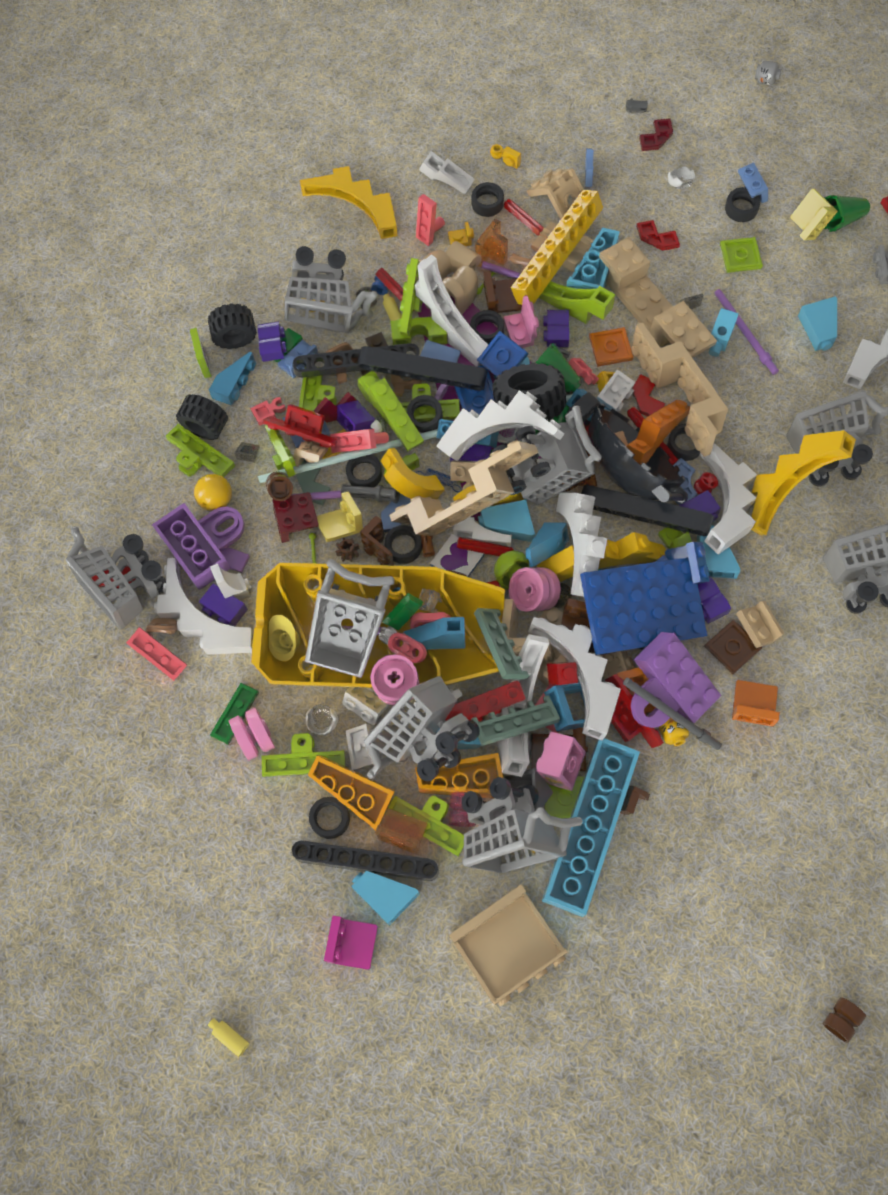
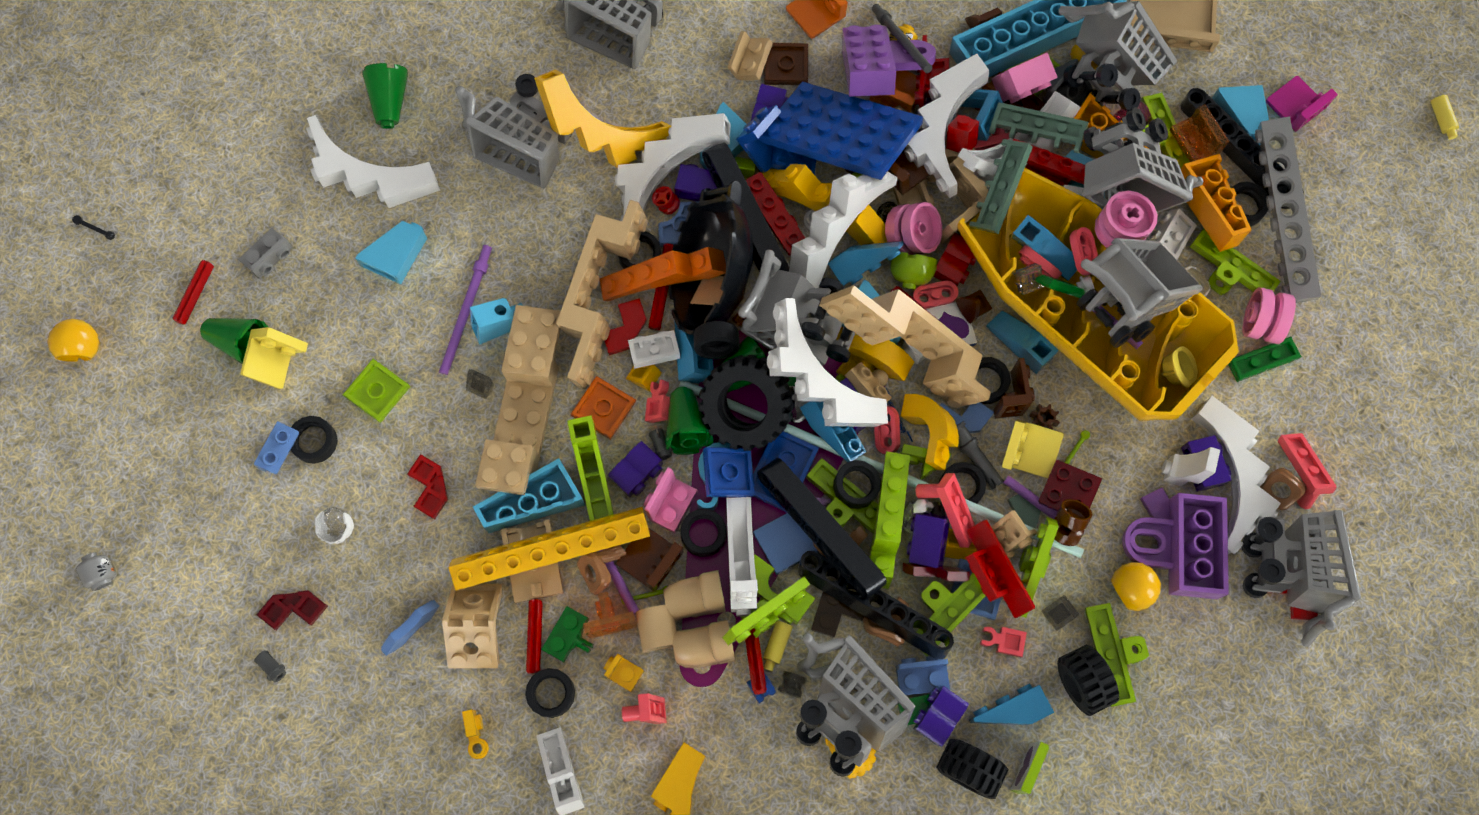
camera: 145 degrees left, 5 degrees up
(342, 875) = (1281, 131): none -> light grey brick
(436, 463) = (887, 431): none -> coral plate
(481, 570) = (934, 295): none -> coral plate
(510, 229) = (567, 635): none -> green plate
(623, 525) = (775, 212): none -> red bracket

